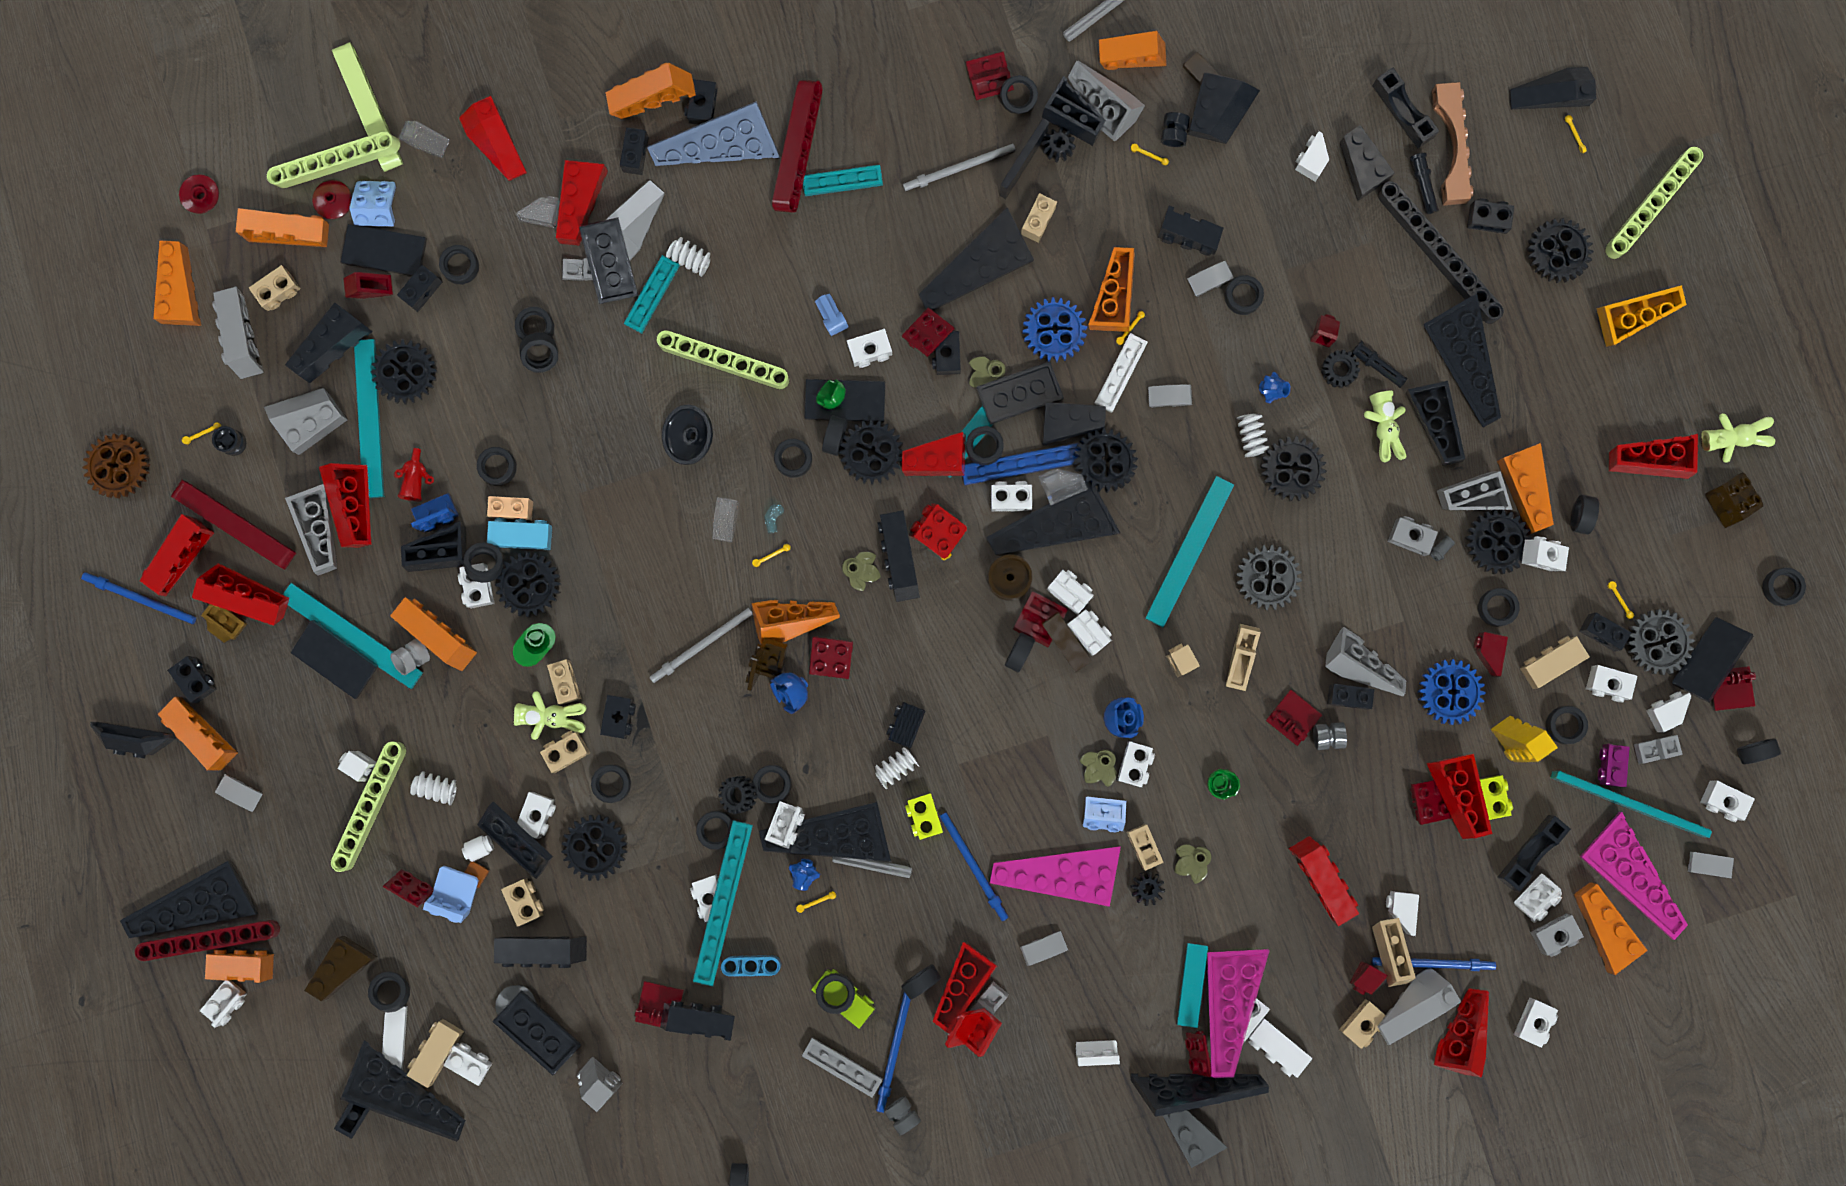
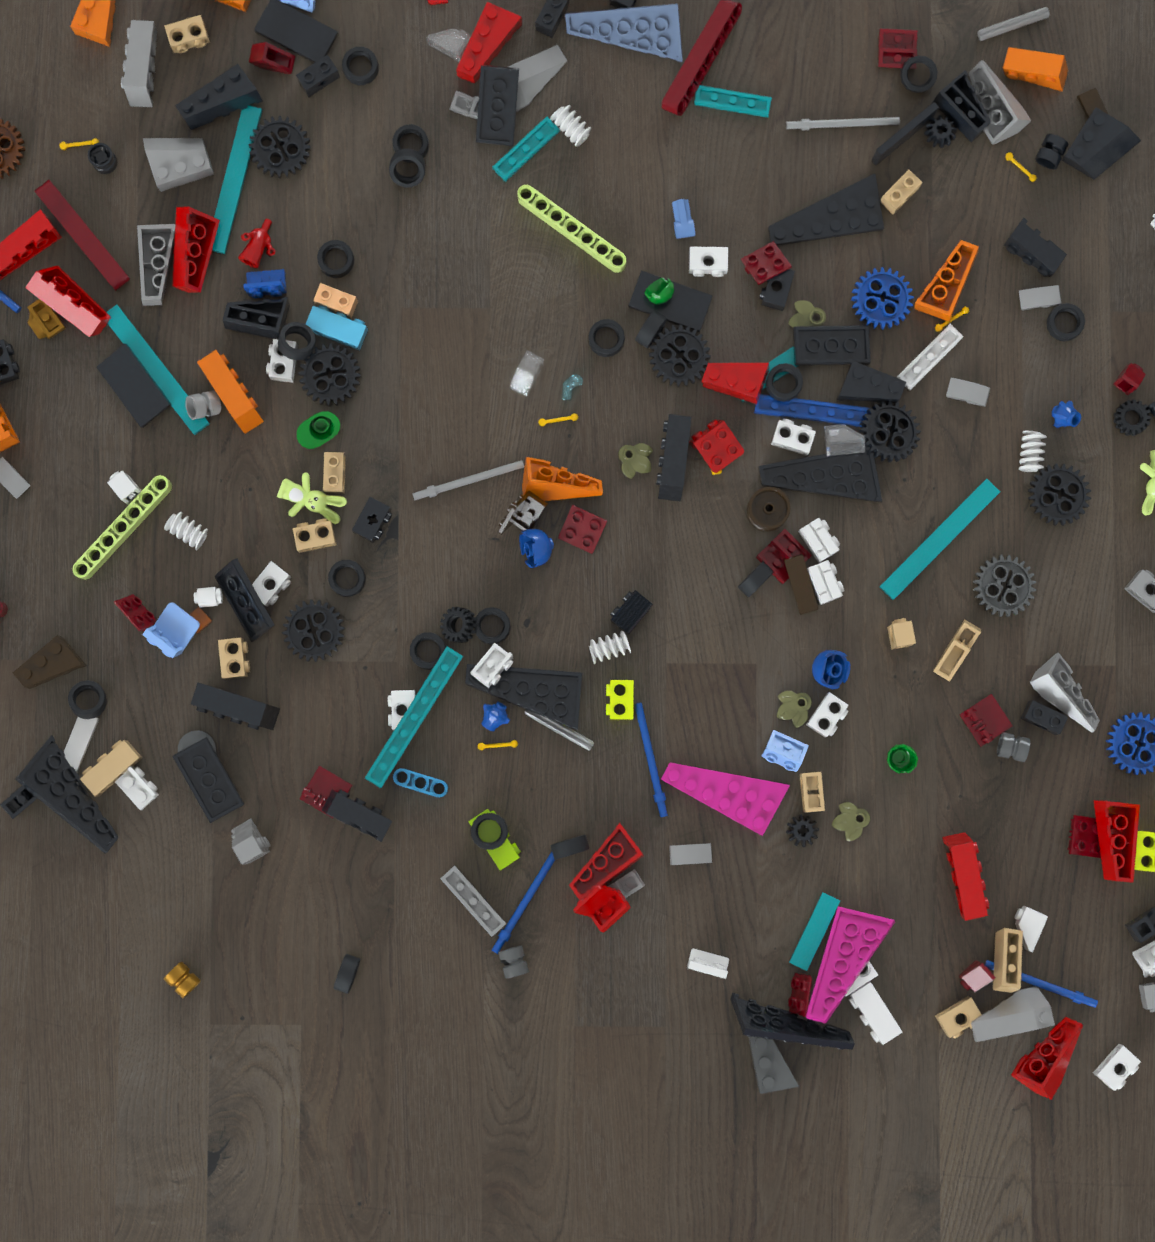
camera: 15 degrees right, 0 degrees up
(680, 432) = (511, 281): black dish -> none

